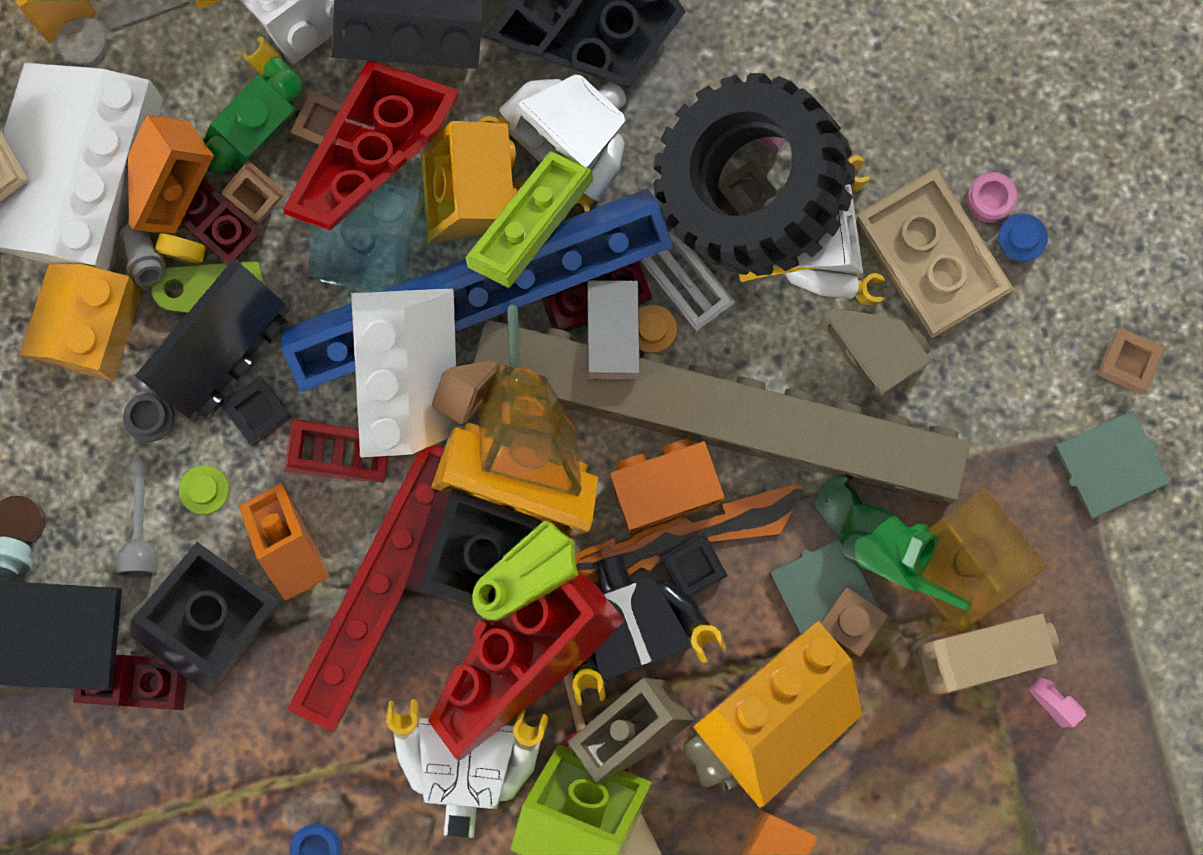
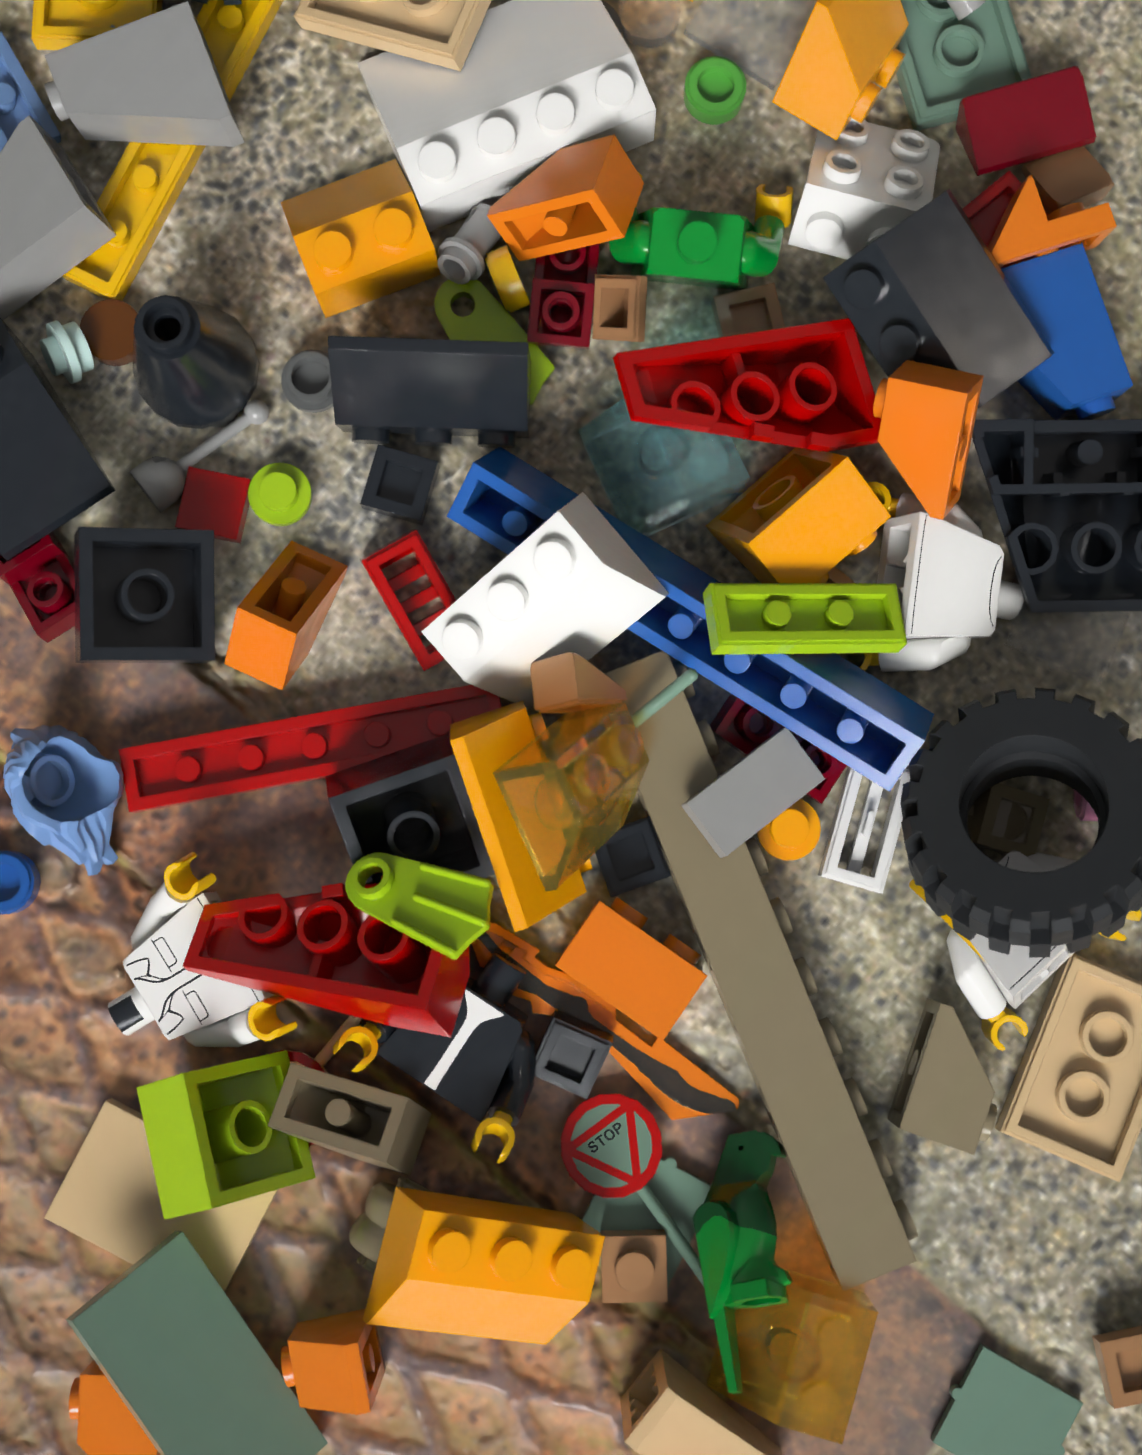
camera: 50 degrees right, 5 degrees up
(79, 483) = (193, 362): none -> black cone
(162, 39) = (714, 90): none -> bright green tile
(176, 534) = (214, 503): none -> red tile
(289, 763) = (64, 792): none -> medium blue hair
(472, 62) = (929, 429): none -> orange slope
(599, 438) = (632, 858): none -> black tile
(772, 581) = (613, 1151): none -> piece

